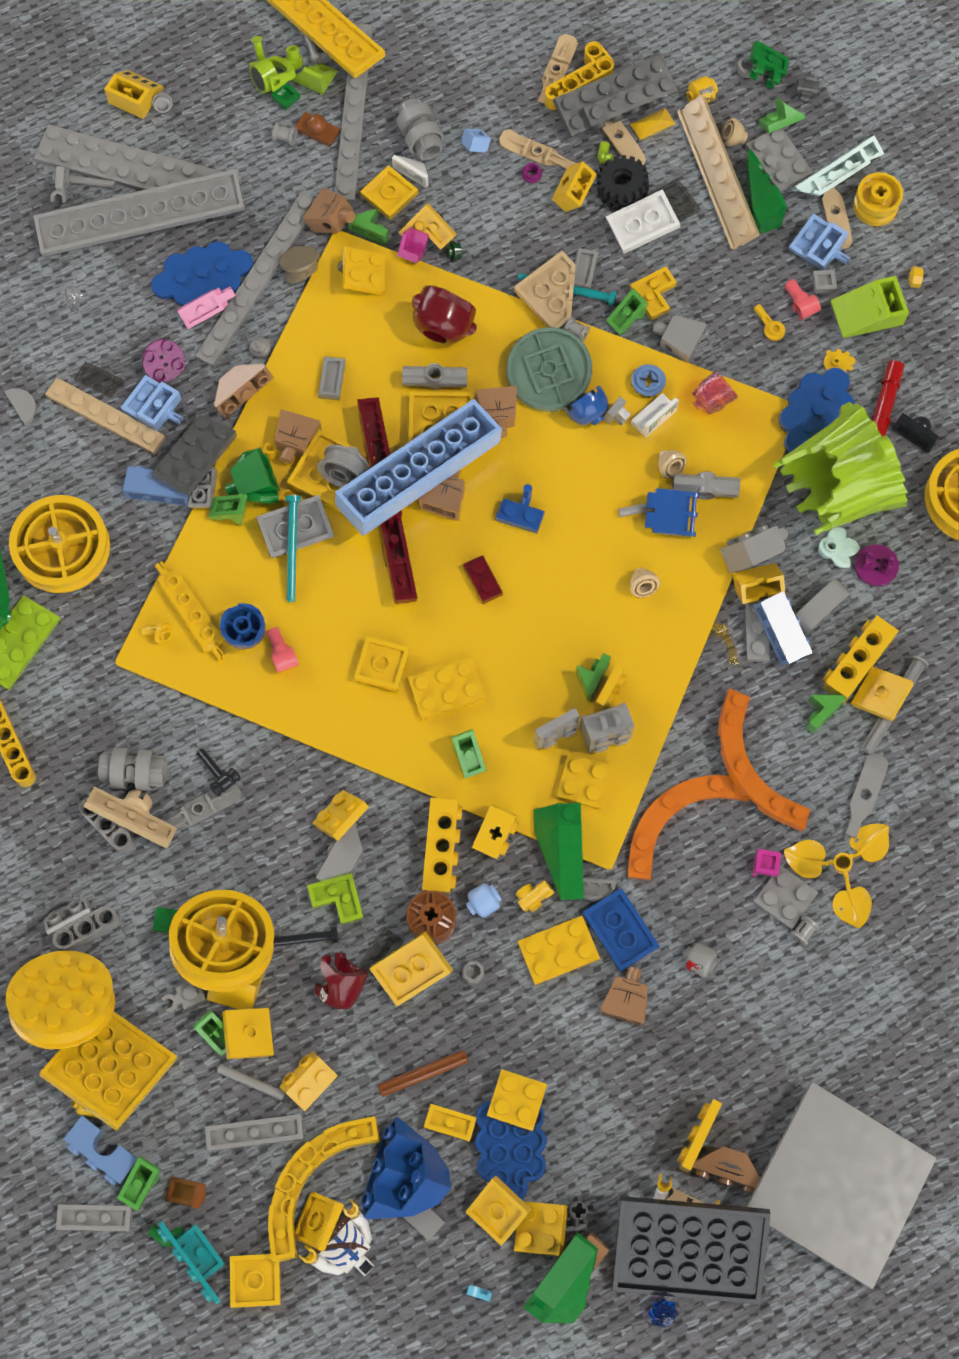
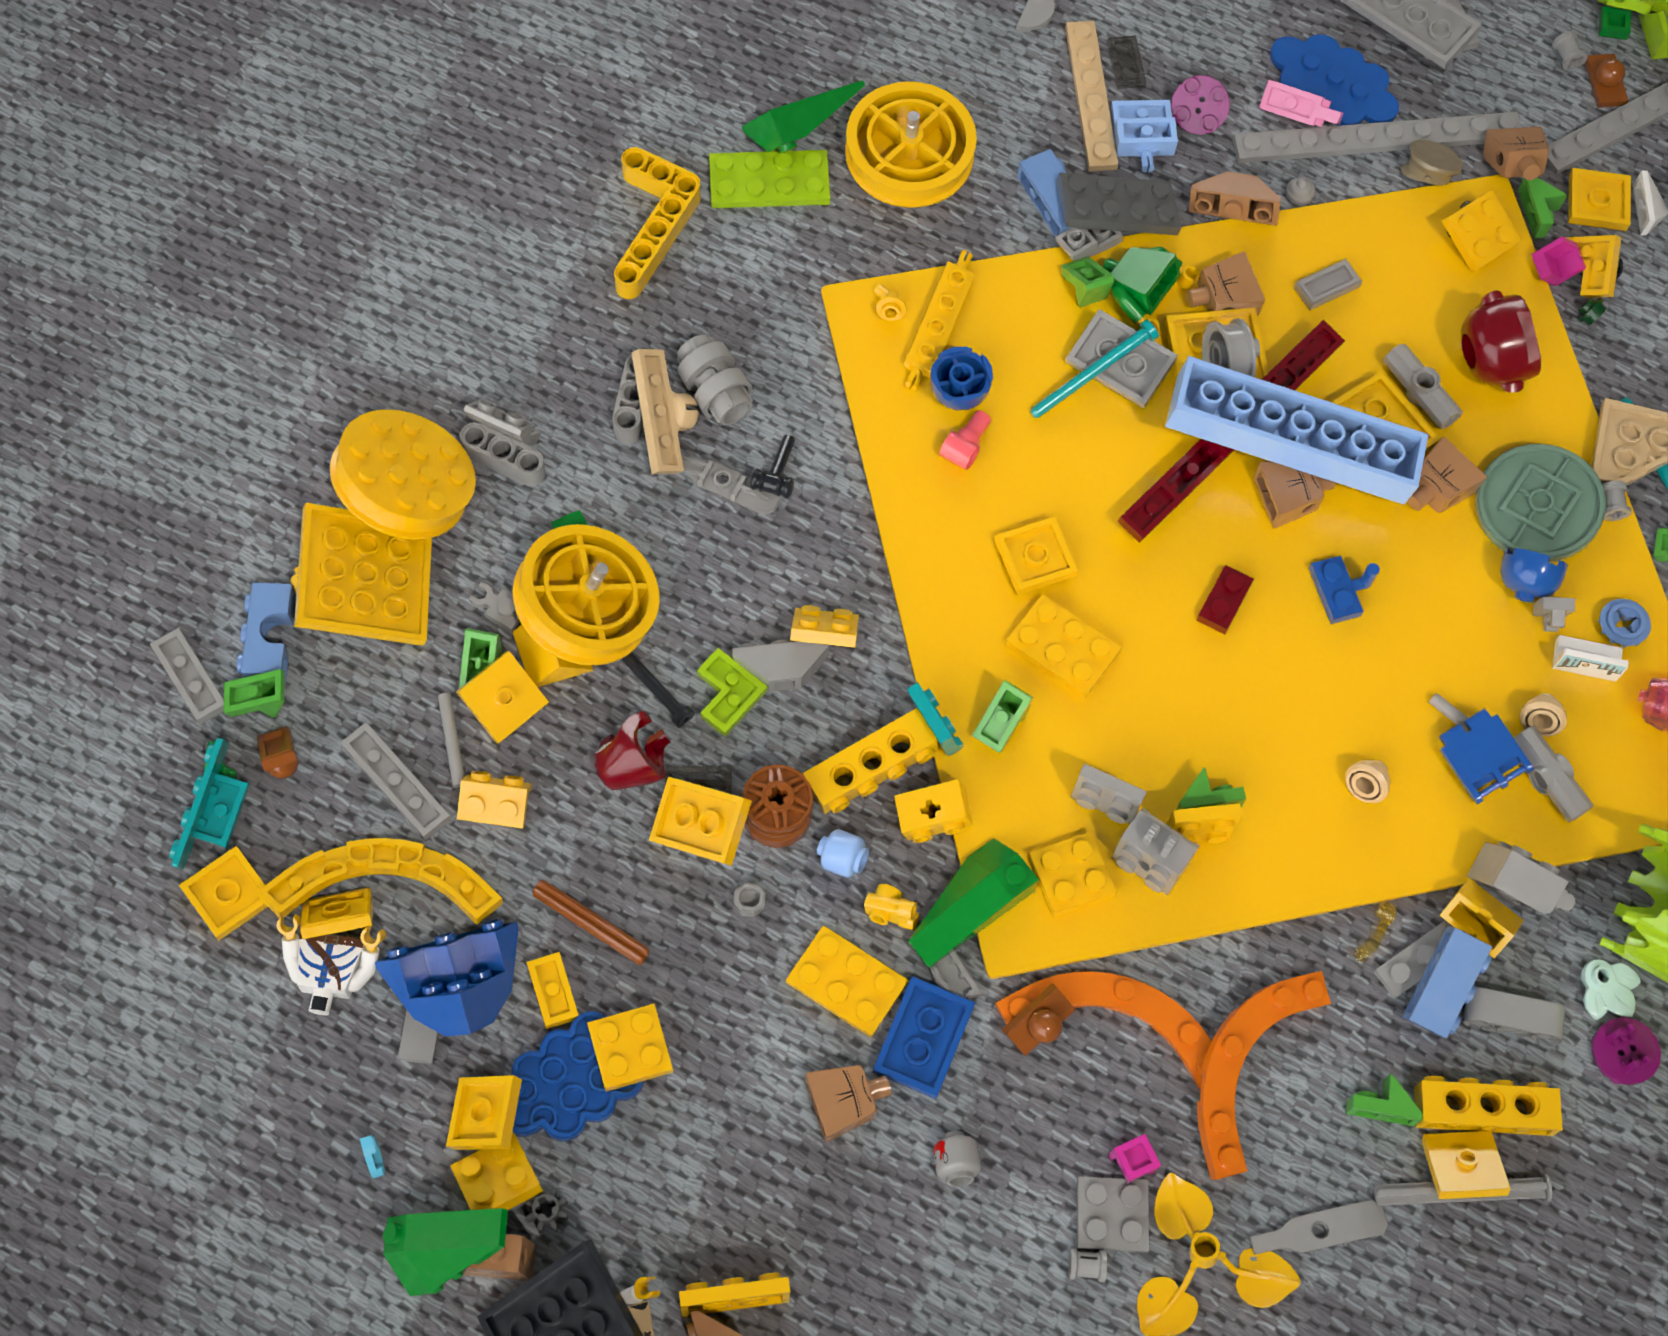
camera: 50 degrees right, 5 degrees down
(452, 792) = (940, 726): none -> teal plate
(656, 859) = (1039, 1020): none -> dark orange tile

